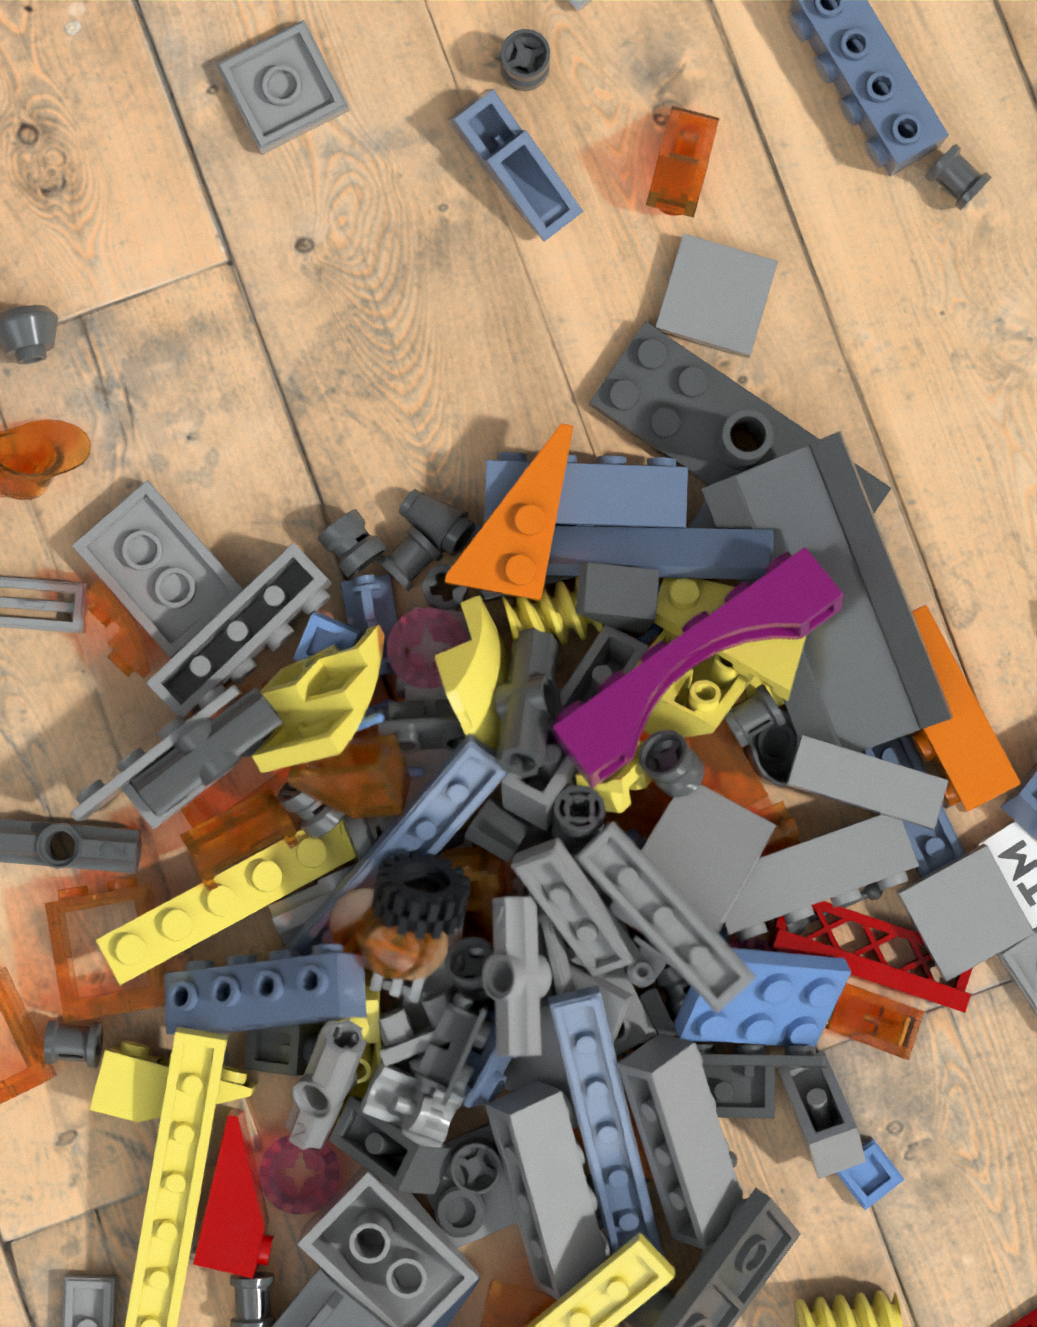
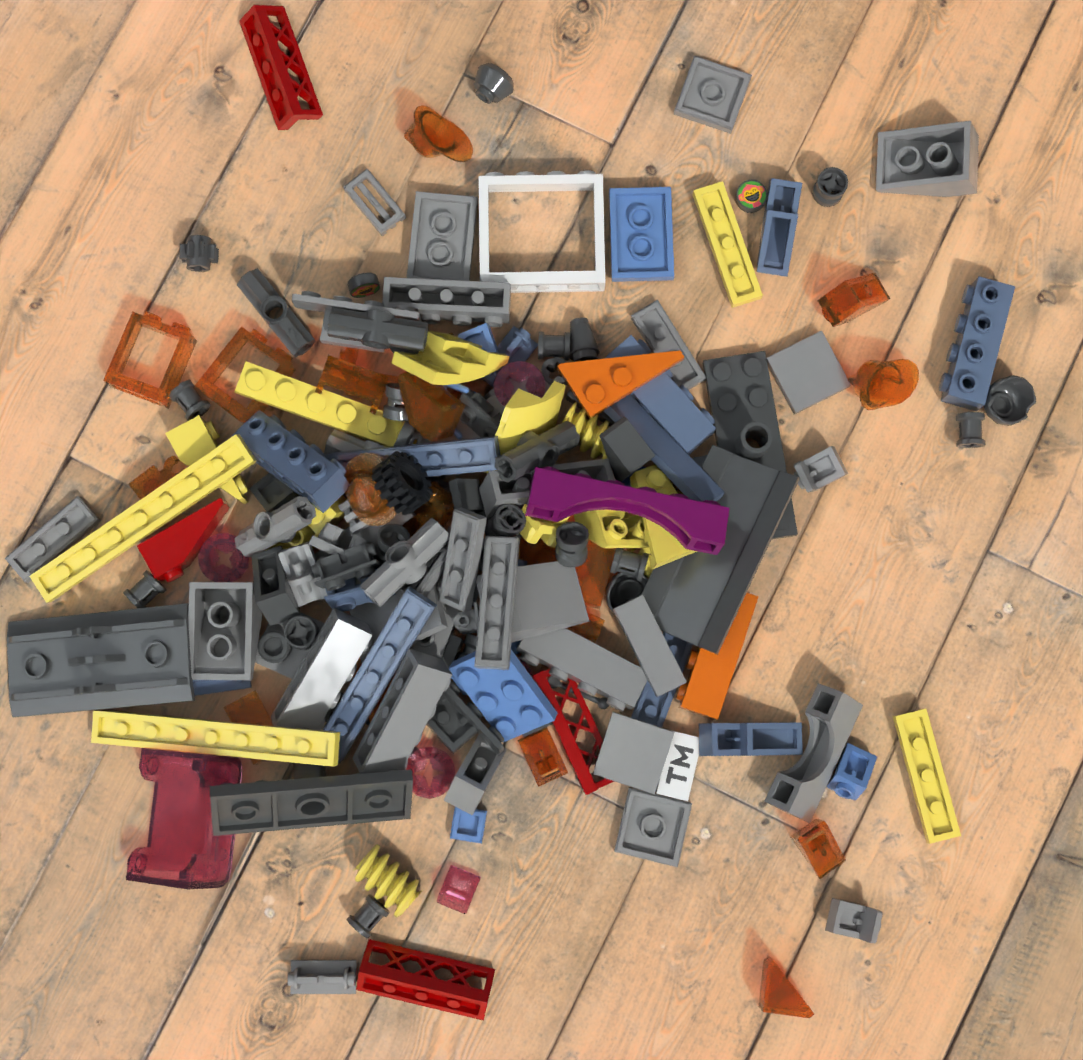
camera: 50 degrees right, 5 degrees down
(126, 643) = (394, 256): clear orange slope -> none
(126, 711) = (363, 285): none -> dark grey tile
(132, 1171) = (153, 478): none -> clear orange plate
(322, 497) = (547, 280): none -> white window
(351, 543) = (535, 313): dark grey wheel -> none
(372, 331) = (641, 234): none -> medium blue plate
(447, 160) = (751, 196): none -> tile
(479, 243) = (727, 244): none -> light yellow plate
(530, 424) = (663, 337): none -> light grey tile
(769, 1140) = (440, 761): none -> clear pink gear
(812, 223) = (884, 382): none -> clear orange piece
(842, 392) = (820, 470): none -> light grey bracket
(930, 1252) = (458, 889): none -> clear pink slope
(968, 100) = (1009, 400): none -> dark grey hair

